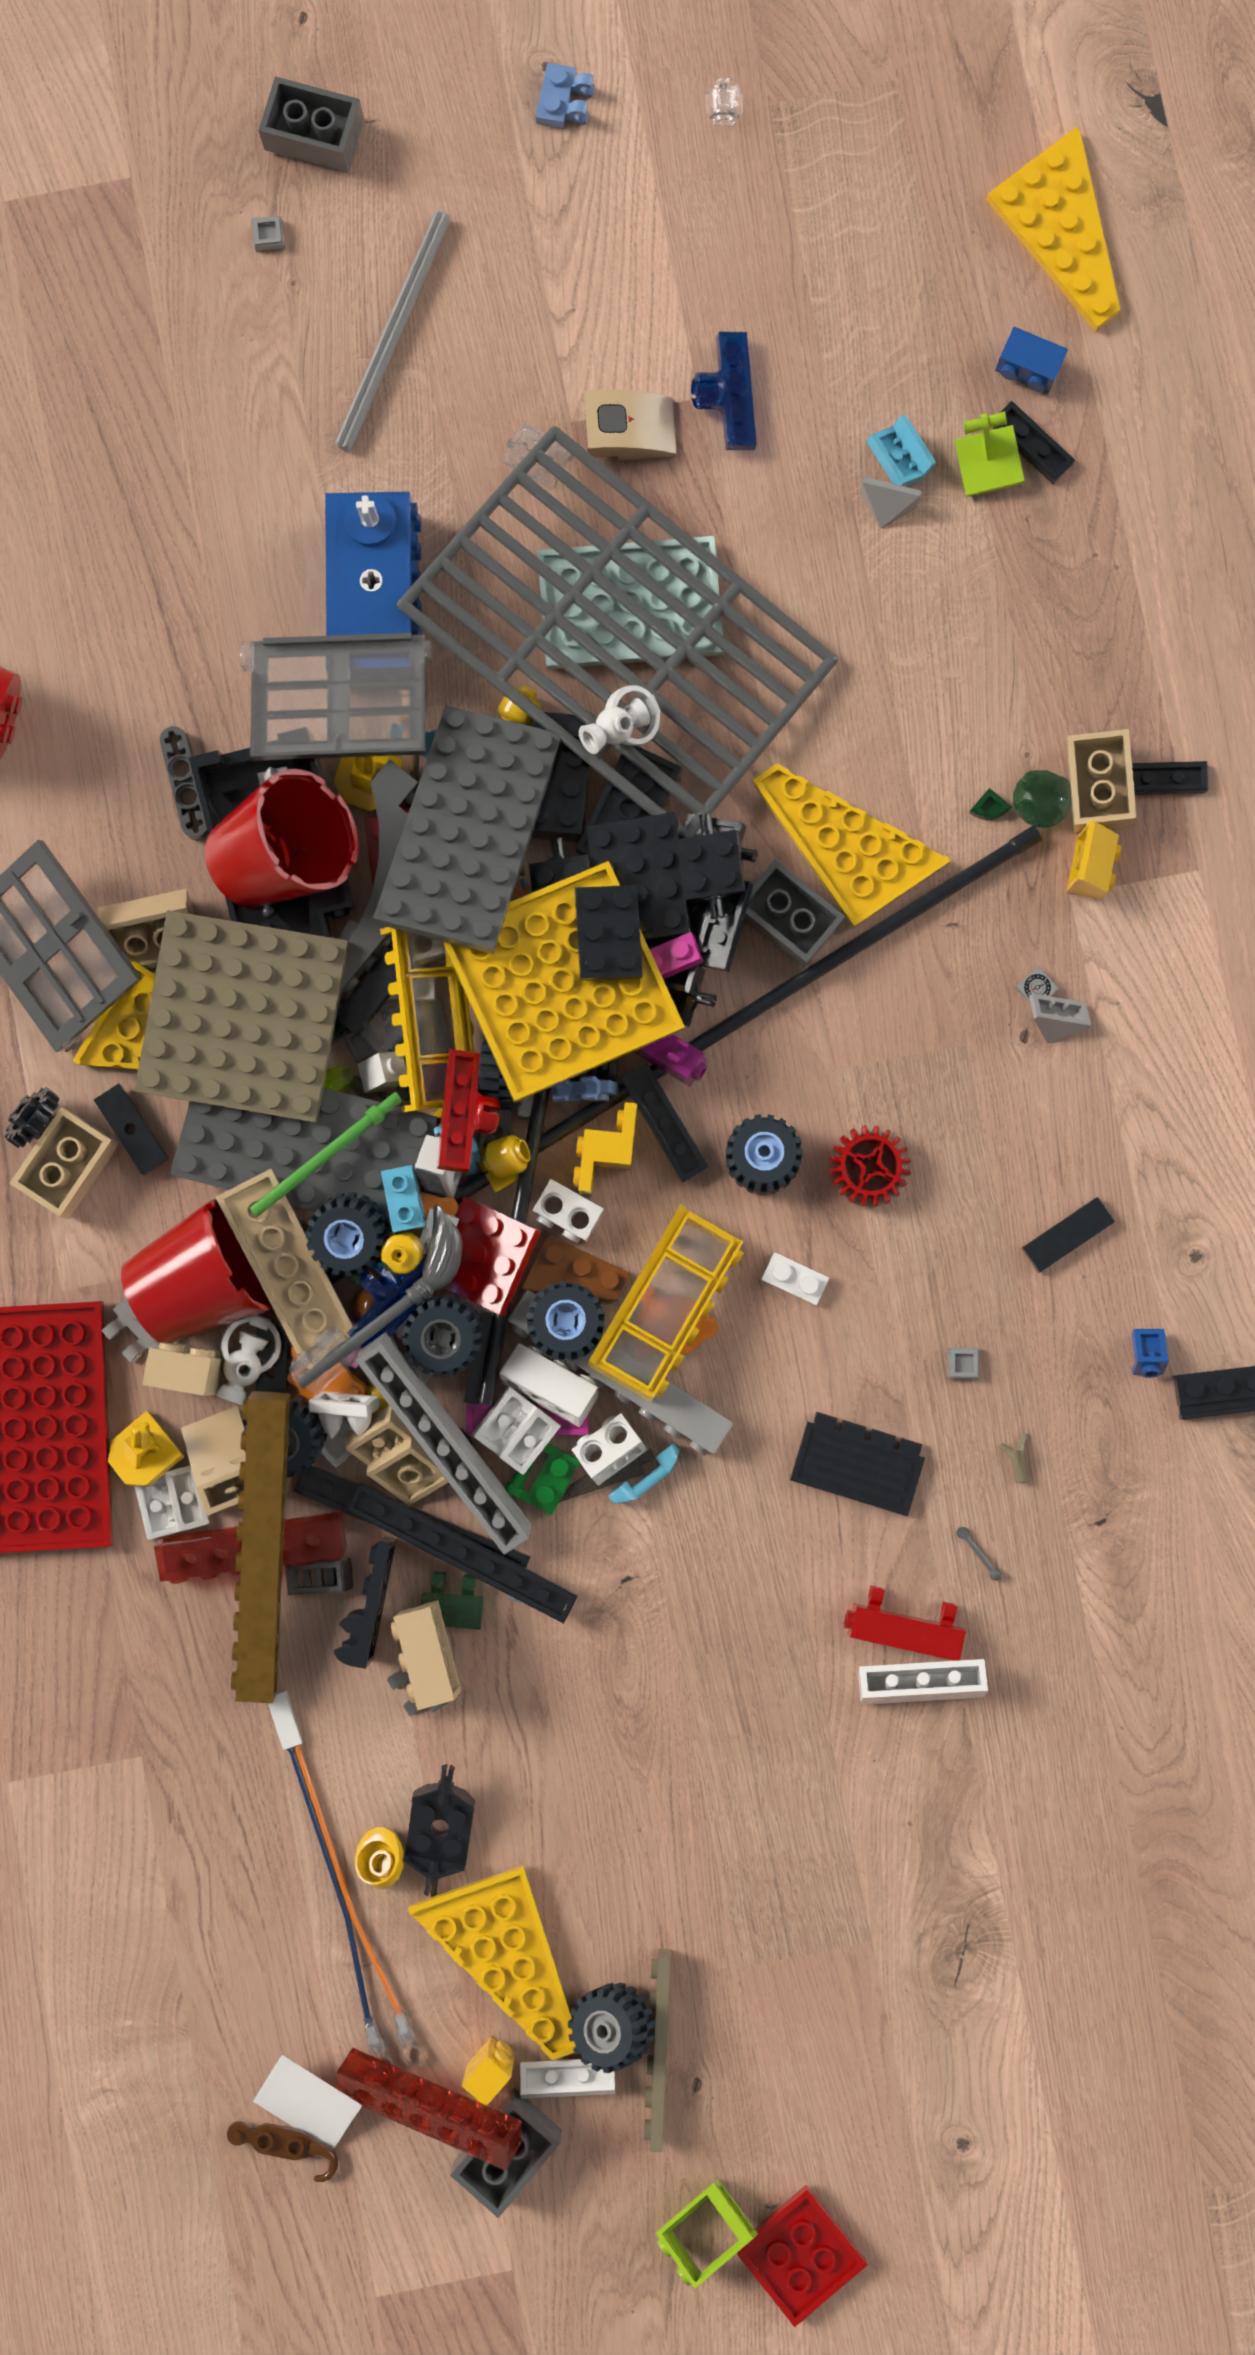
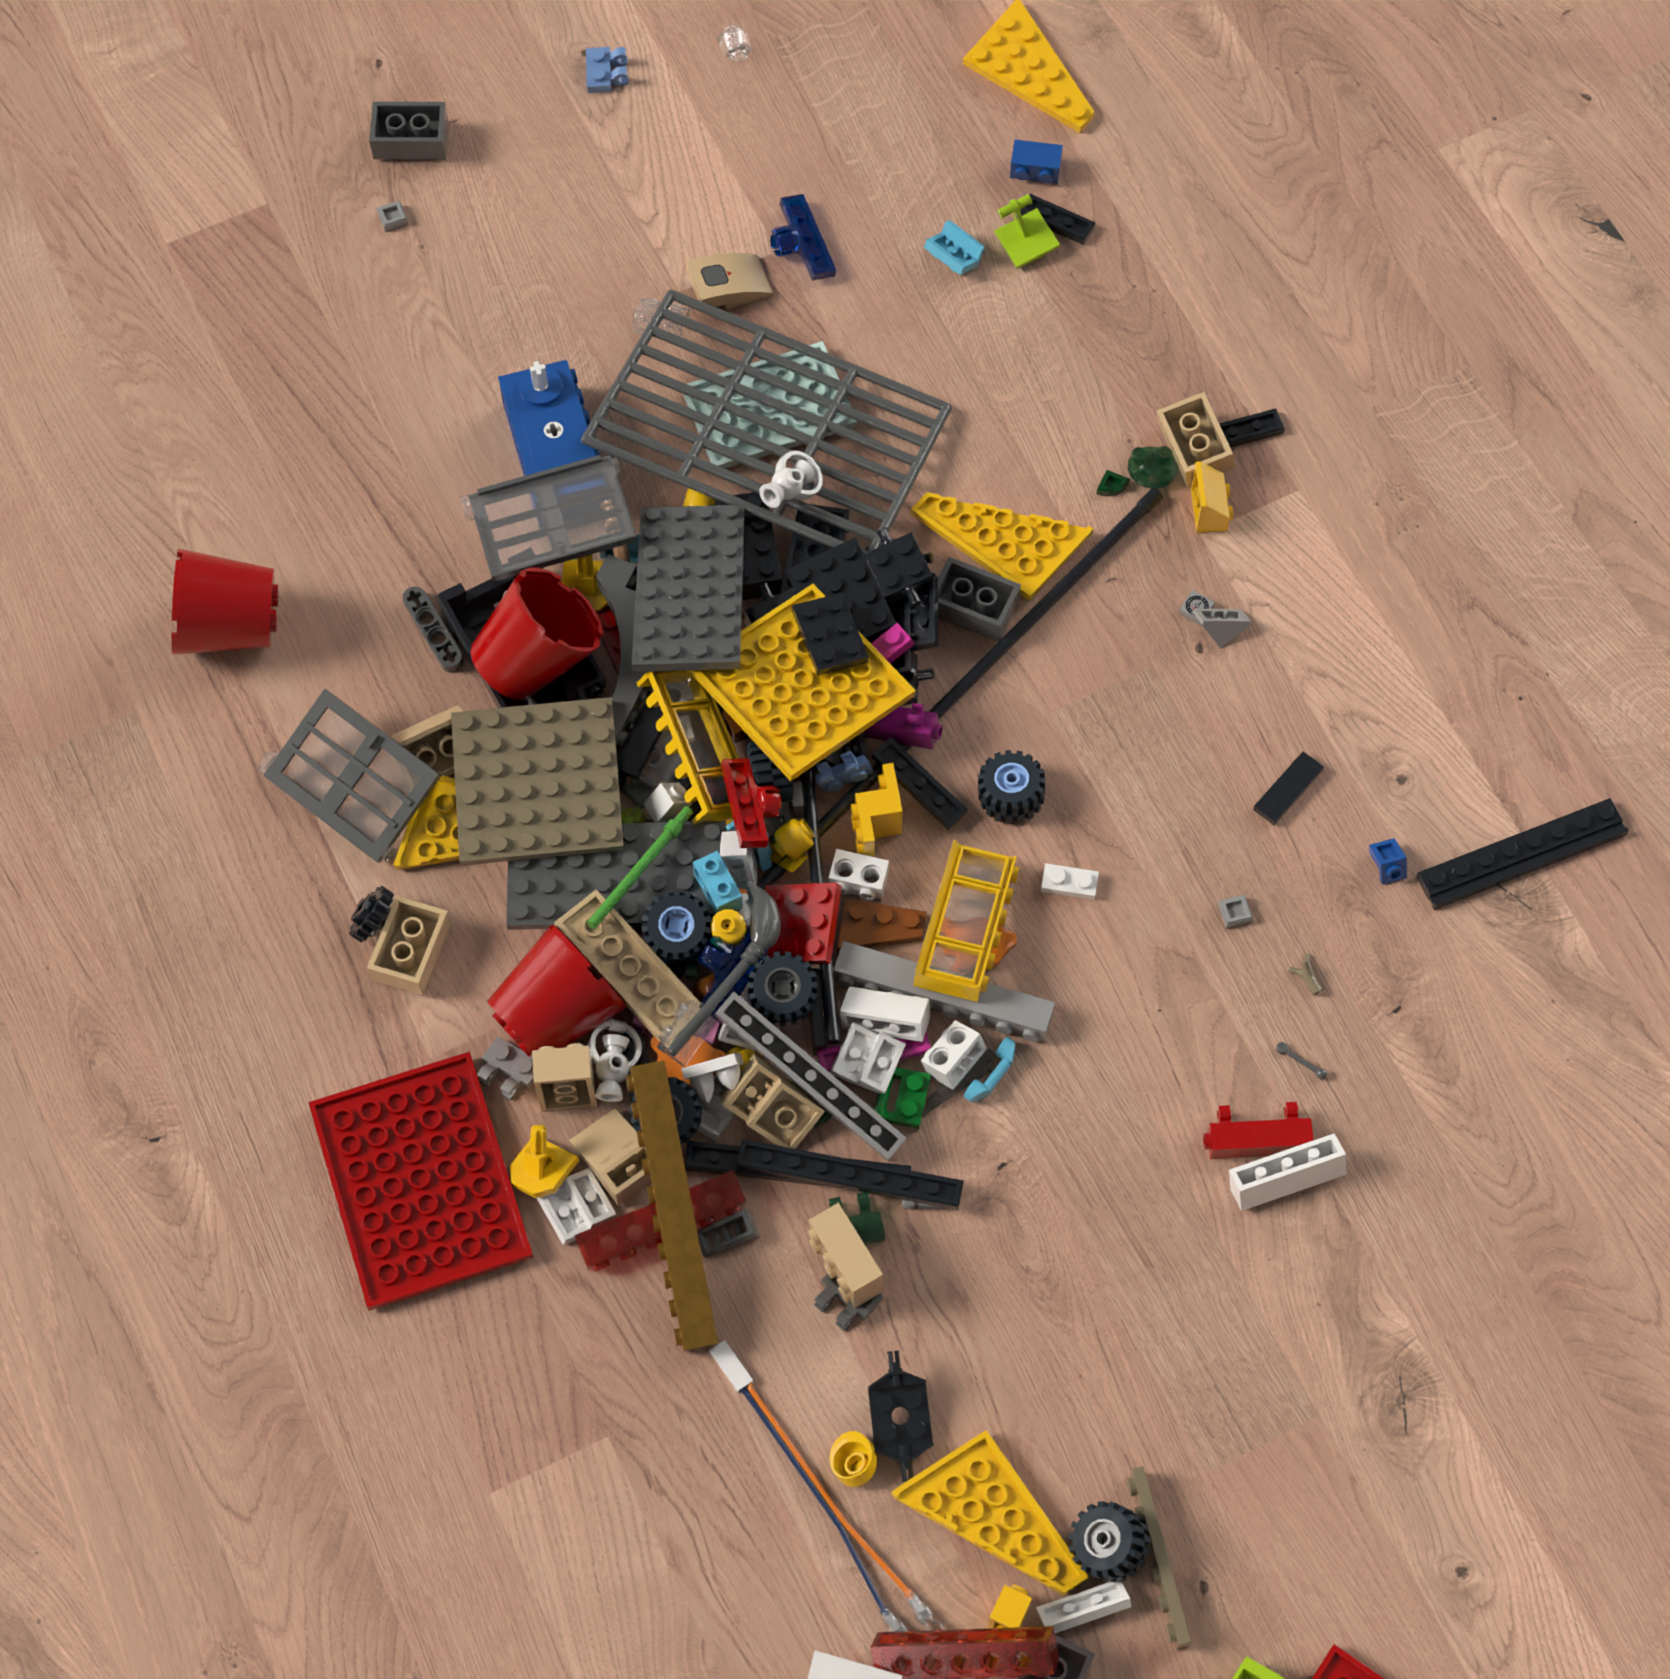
camera: 20 degrees left, 20 degrees down
(122, 1114) = (448, 897): black tile -> none
(365, 1622) = (780, 1259): black hinge -> none
(392, 331) = (514, 261): light grey axle -> none
(565, 1321) = (884, 950): black wheel -> none
(856, 1466) = (1173, 1018): black hinge -> none
(882, 1172) = (1081, 770): red gear -> none
(888, 500) = (954, 284): light grey slope -> none

